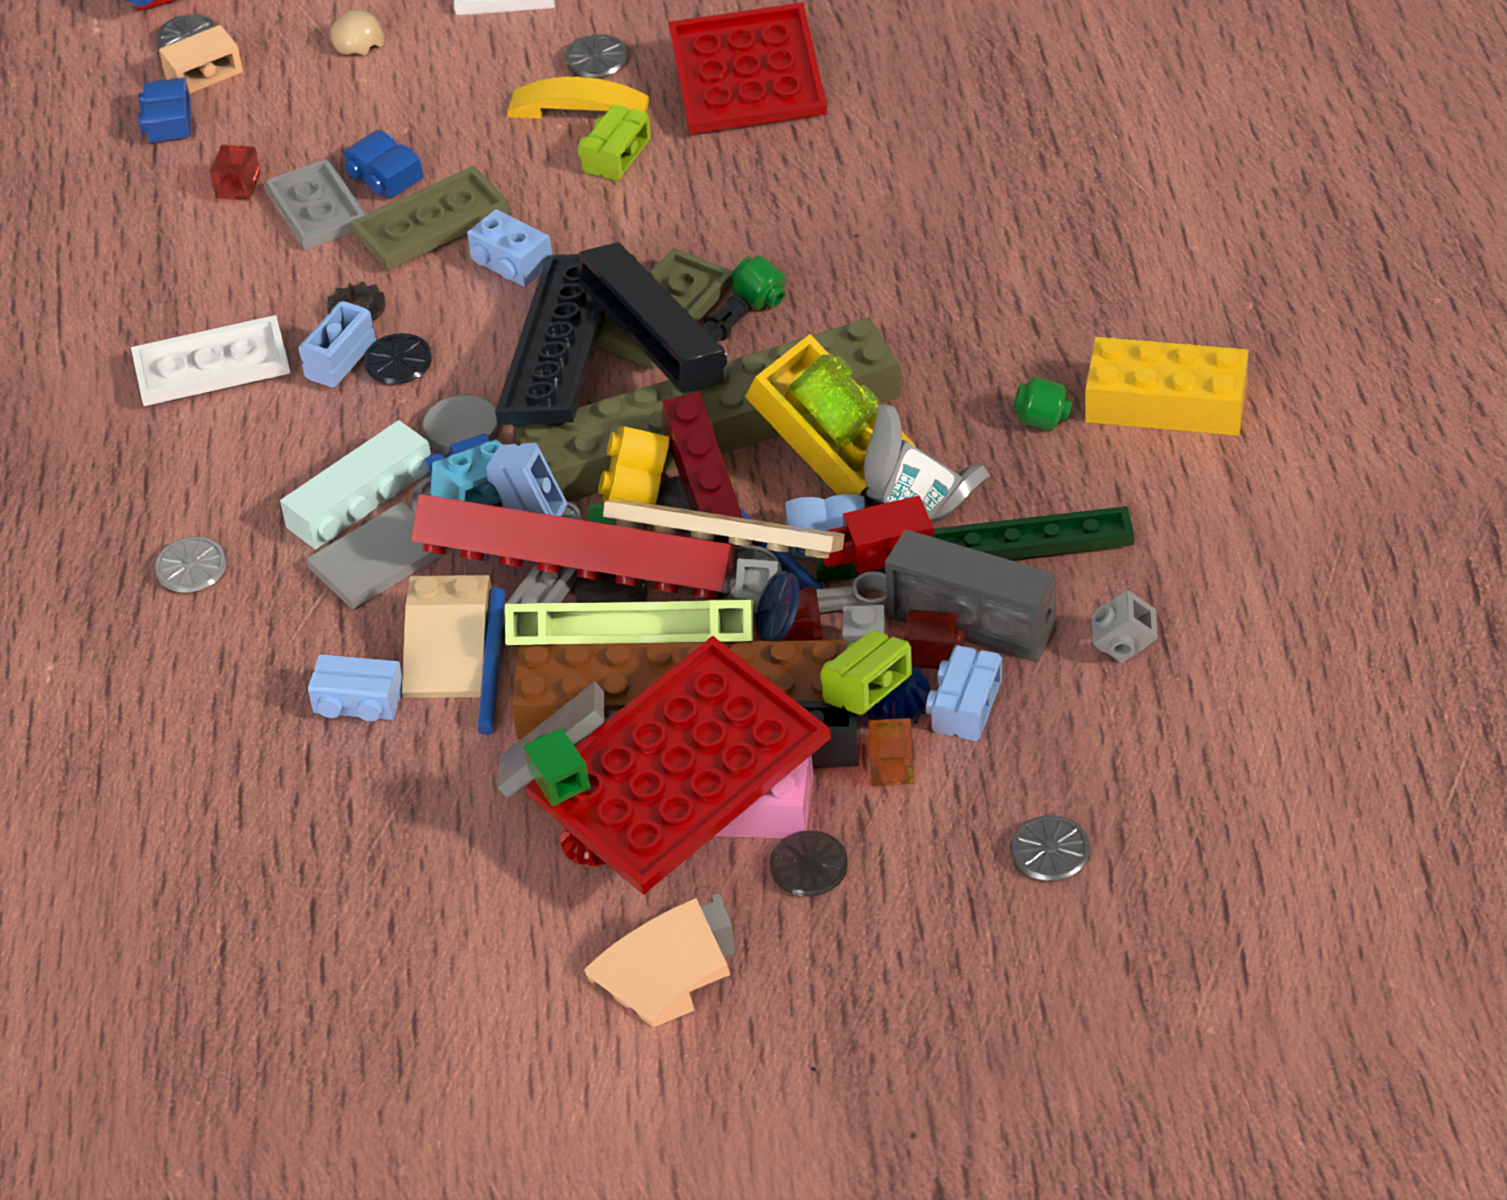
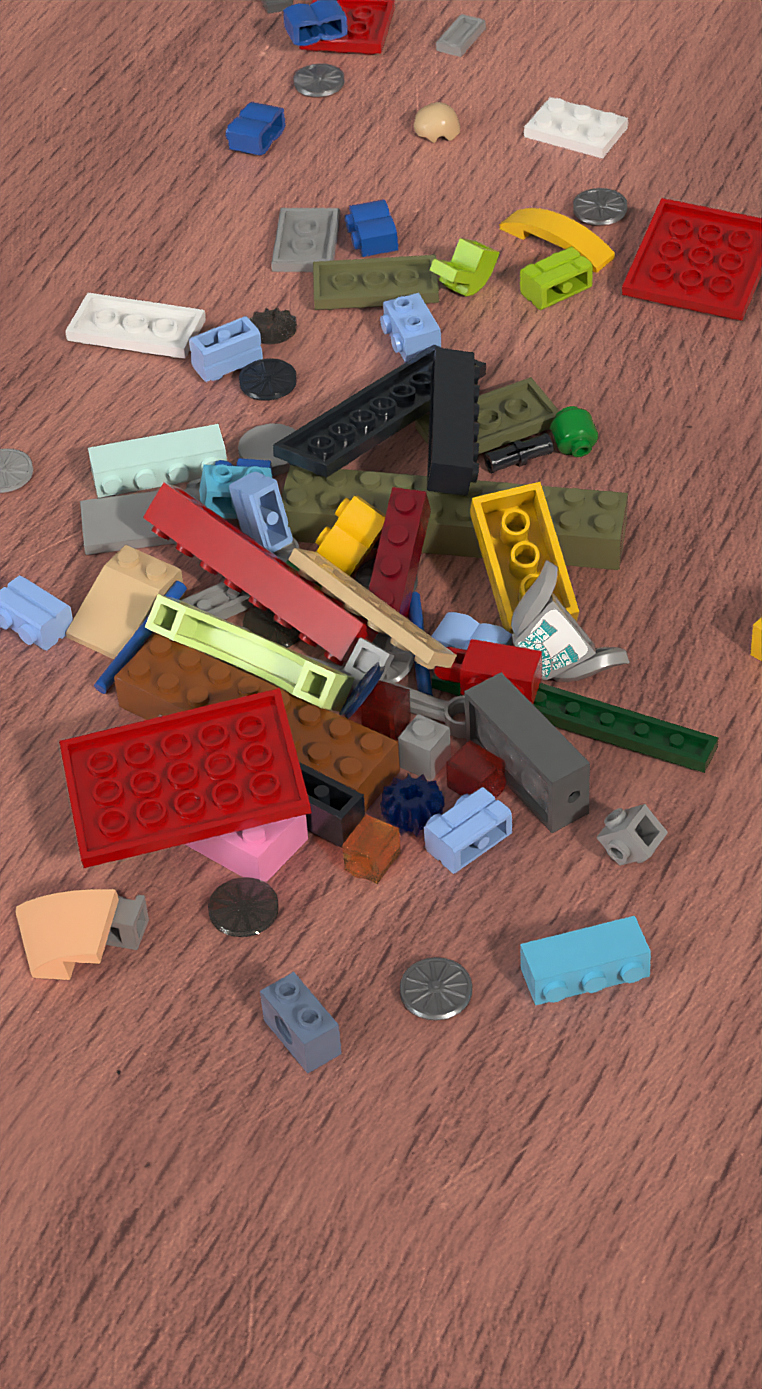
camera: 30 degrees right, 0 degrees up
(202, 58) = (309, 100): light nougat brick -> none
(235, 172) = (264, 193): clear red brick -> none
(519, 165) = (469, 267): none -> lime brick
(556, 766) = (82, 735): green brick -> none
(577, 719) = (121, 714): light grey tile -> none
(836, 398) = (520, 542): clear neon green brick -> none
(866, 672) = (382, 773): lime brick -> none
(959, 935) = (301, 1022): none -> sand blue brick
(1041, 404) = (718, 623): green head -> none
(1169, 757) = (585, 960): none -> medium azure brick

